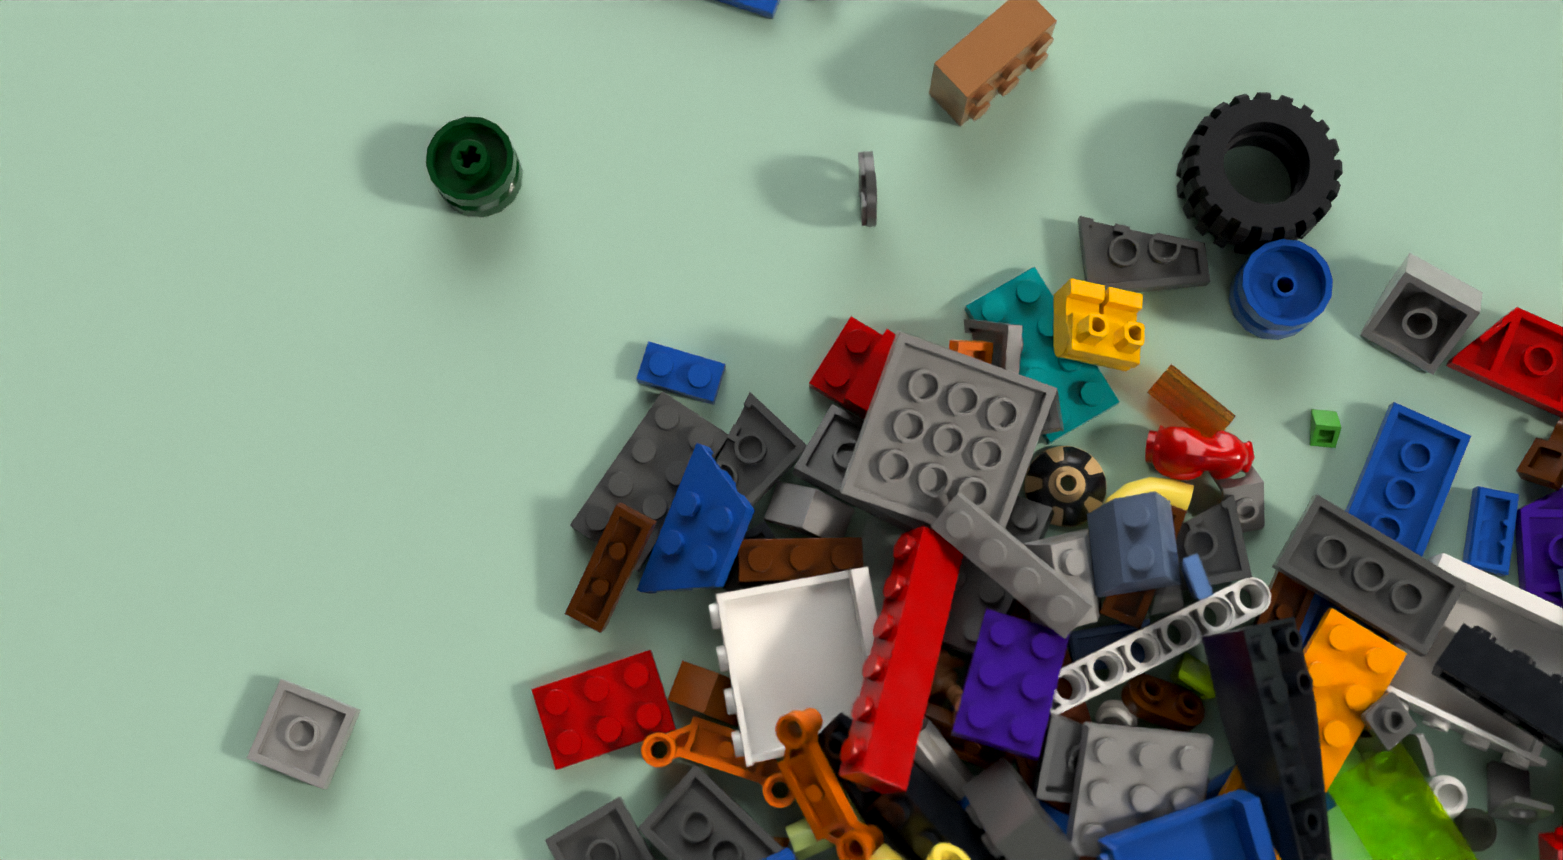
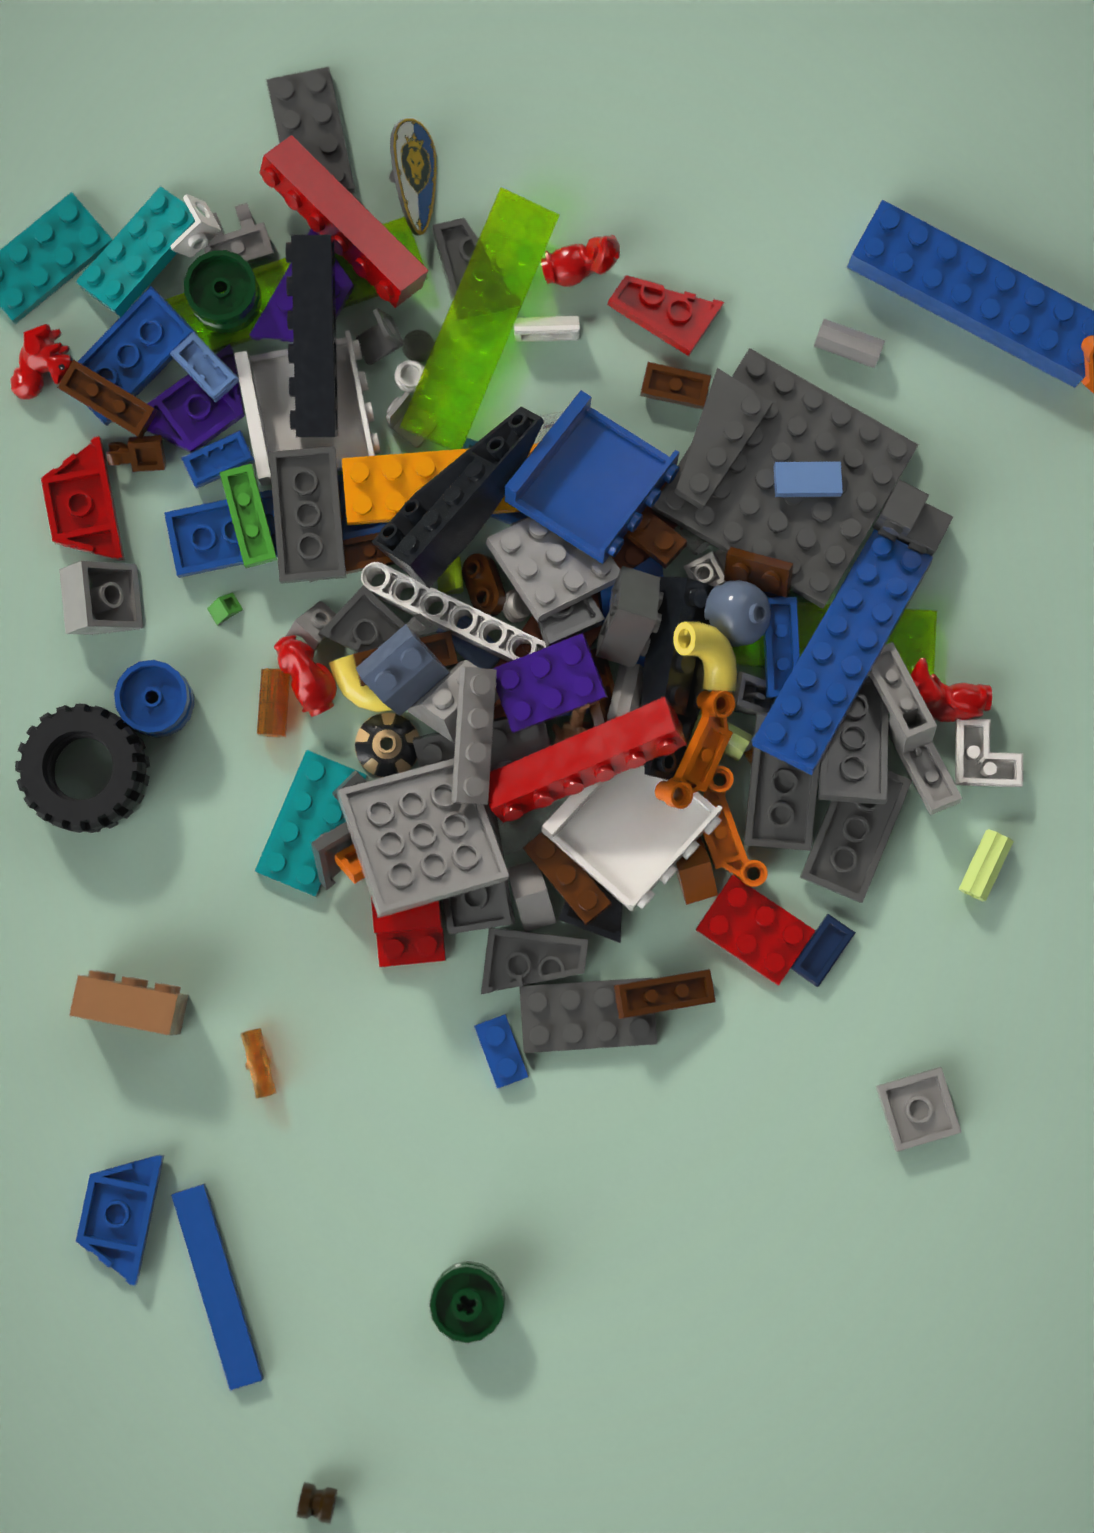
camera: 130 degrees left, 5 degrees up
(531, 762) = (822, 950): none -> dark blue tile
(699, 530) = (597, 954): blue wing -> none
(843, 138) = (258, 1063): none -> clear orange pin
(867, 189) = (285, 1019): dark grey wheel -> none
(1098, 325) = (268, 798): yellow hips -> none
(1140, 260) = (201, 808): dark grey wing -> none
(1195, 577) = (394, 618): medium blue tile -> none
(1385, 725) = (396, 442): dark grey bracket -> none
(1410, 514) = (248, 516): none -> bright green plate

